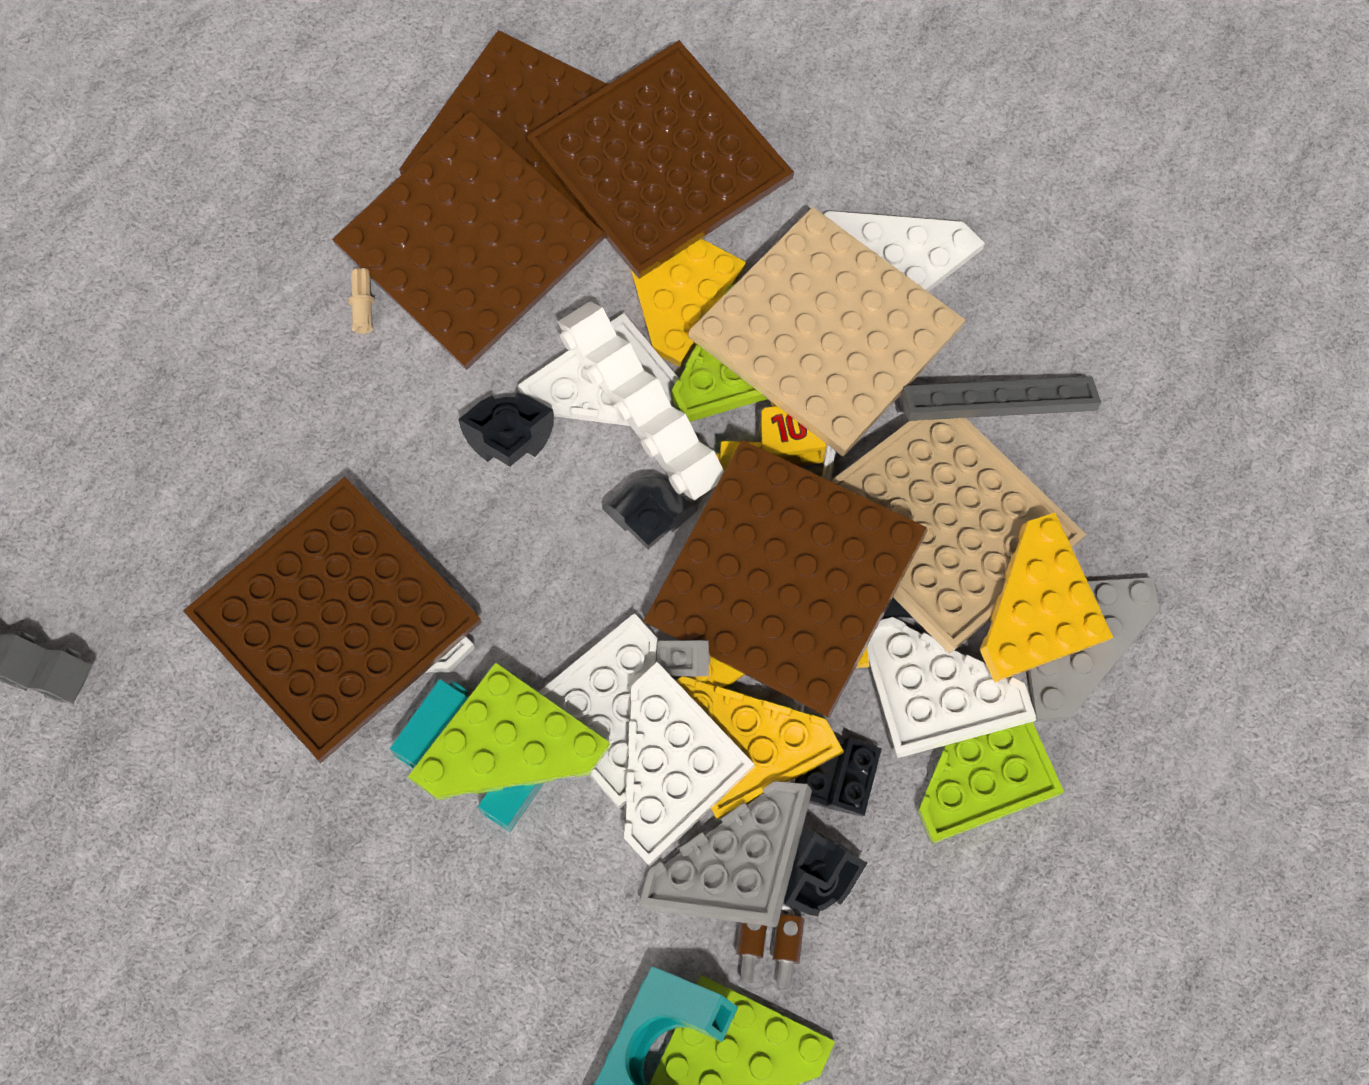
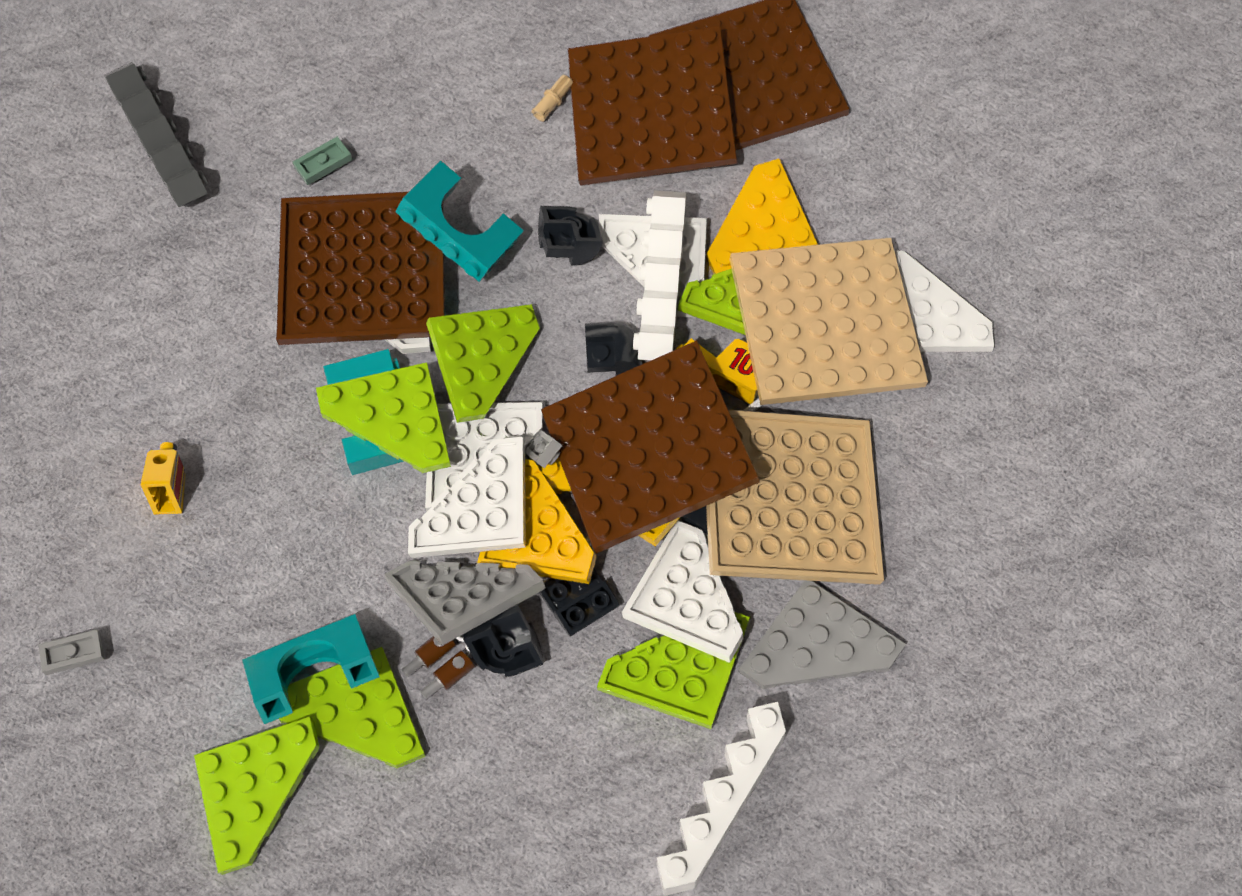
camera: 45 degrees right, 5 degrees down
(181, 538) = (322, 160): none -> sand green plate
(330, 993) = (164, 469): none -> yellow torso
(357, 513) = (473, 253): none -> teal arch
(535, 613) = (480, 354): none -> lime plate
(659, 158) = (817, 138): reddish brown plate -> none
(1000, 398) = (906, 450): dark grey plate -> none
(1043, 604) = (804, 596): yellow plate -> none
(1137, 851) = (724, 800): none -> white brick

